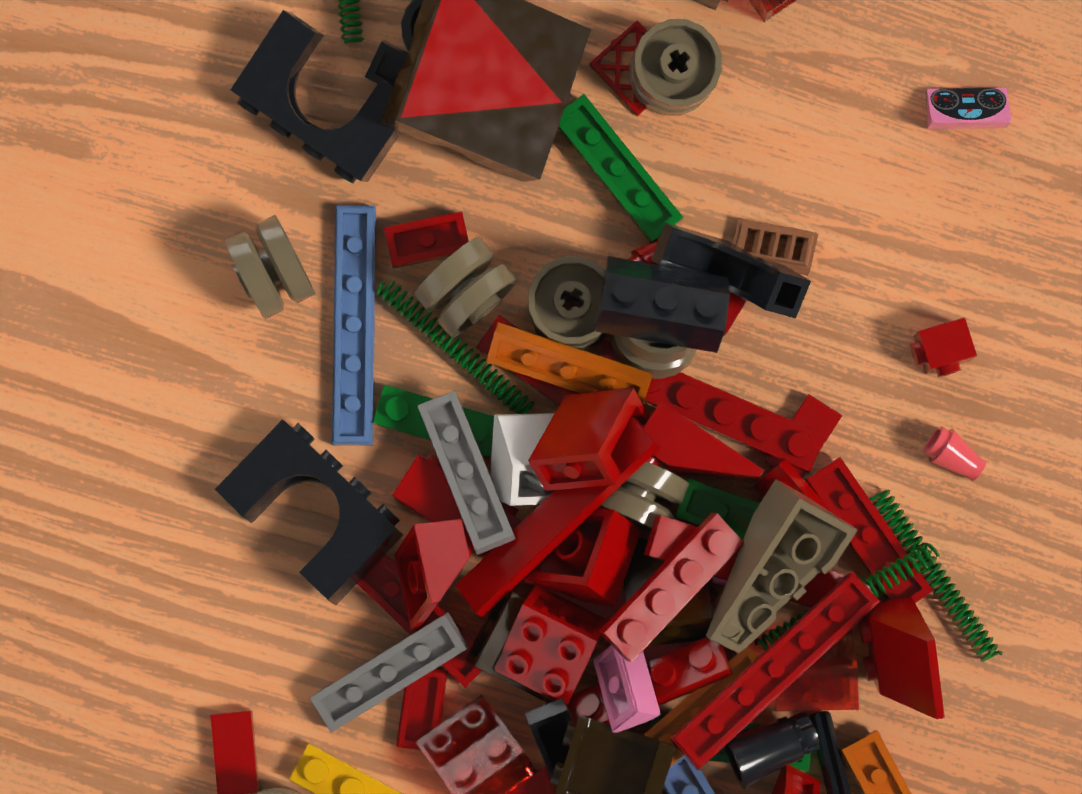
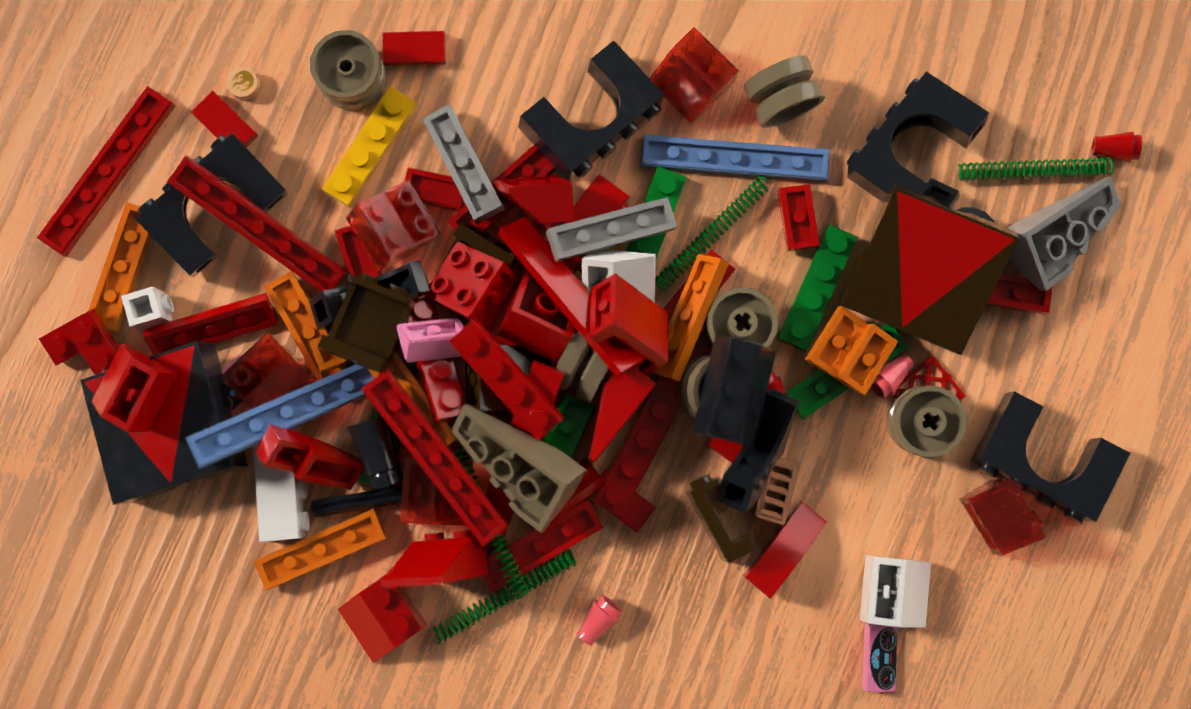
camera: 90 degrees right, 0 degrees up
(253, 384) = (694, 75): none -> clear red slope
(465, 287) = (758, 240): dark tan wheel -> none
(514, 211) = (817, 288): none -> green plate
(594, 163) = (851, 350): none -> orange slope
(621, 114) = (891, 376): none -> coral cone
(847, 230) = (785, 550): none -> red slope
(854, 298) = (727, 549): none -> dark brown panel
(887, 94) = (895, 592): none -> white slope
(943, 347) = (685, 619): red brick -> none
(977, 727) = (382, 618): none -> red slope

